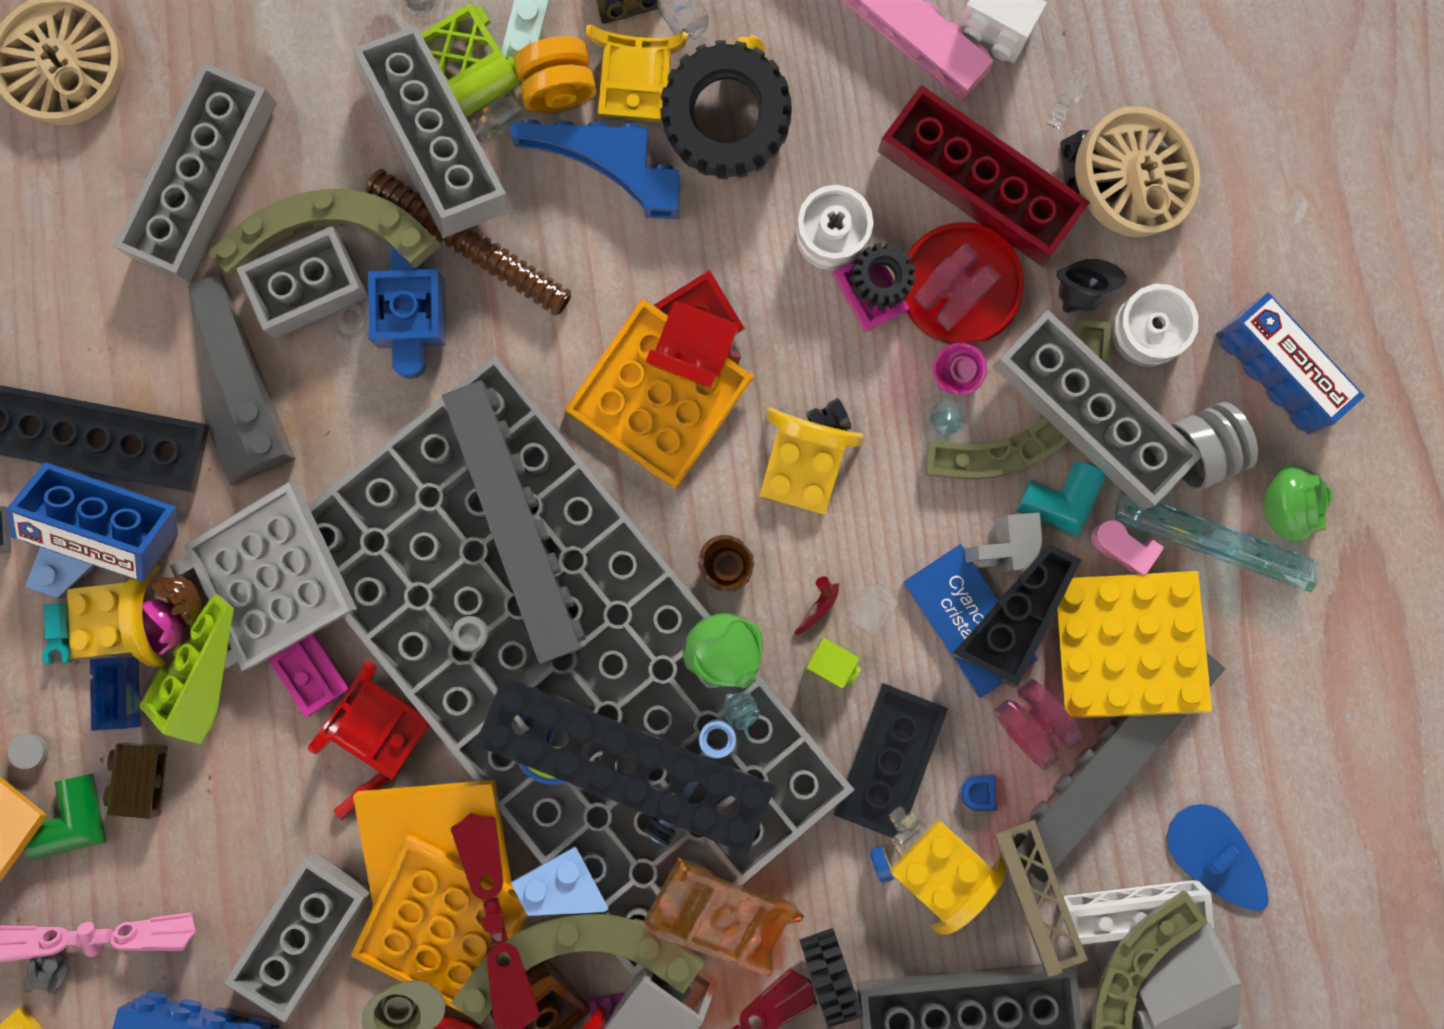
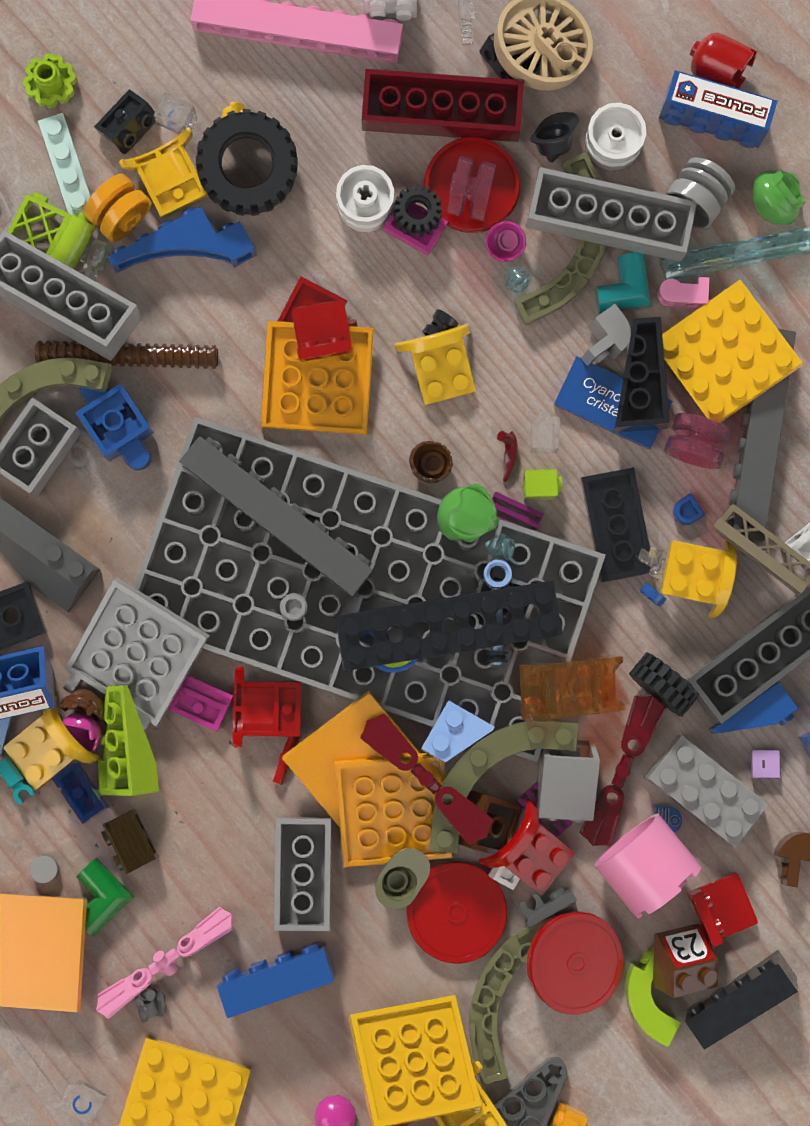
camera: 30 degrees left, 0 degrees up
(799, 703) = (497, 496): none -> magenta tile
(1327, 311) = (721, 59): none -> red cylinder

